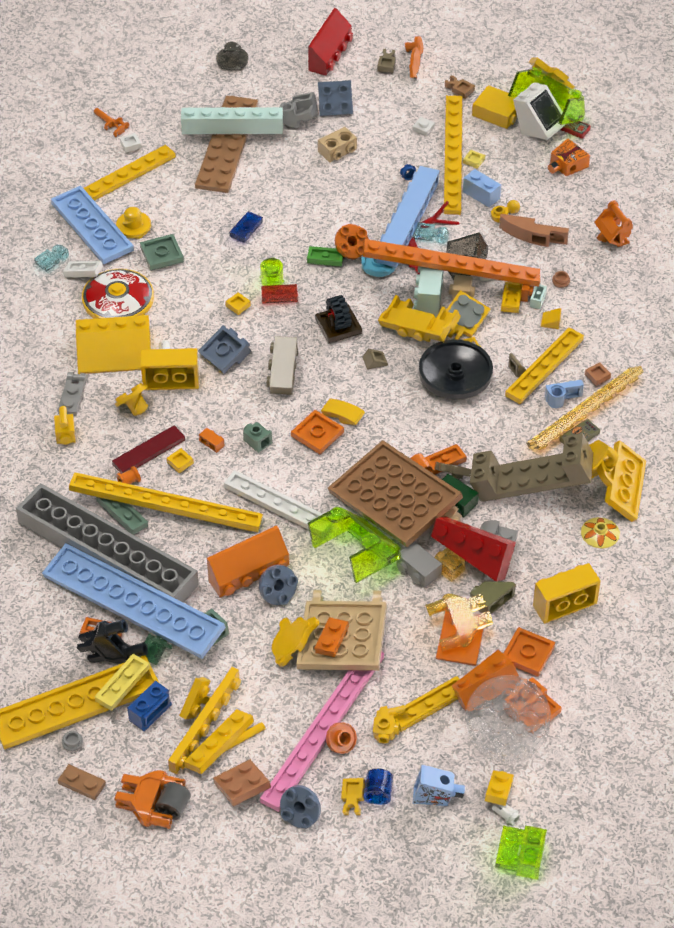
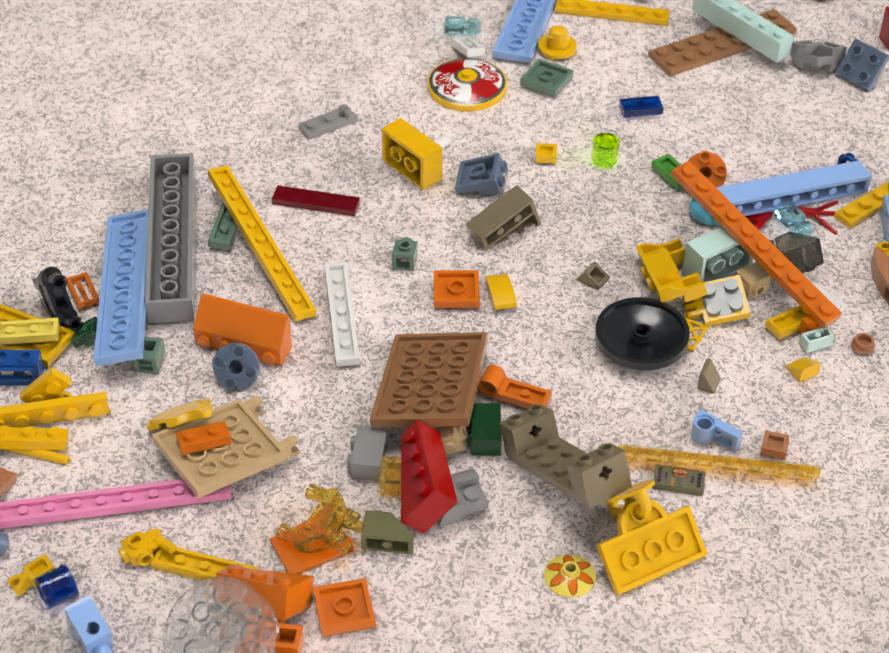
camera: 50 degrees right, 5 degrees down
(64, 427) = (280, 136): yellow brick -> none
(111, 343) = (408, 99): yellow slope -> none
(129, 476) = (268, 205): orange bush -> none
(134, 400) = (356, 154): yellow plate -> none
(180, 460) = (323, 224): yellow plate -> none
(211, 439) = (369, 229): orange piece -> none
(279, 293) = (590, 170): clear red plate -> none
(337, 144) = (813, 100): tan brick -> none
(338, 320) = (603, 222): plate -> none
(341, 737) = (94, 522): orange plate -> none
(377, 548) = (333, 401): clear neon green windscreen -> none
(457, 471) = (511, 404): dark tan plate -> none
(544, 365) = (734, 397): yellow plate -> none
(566, 592) = (442, 587): yellow brick -> none

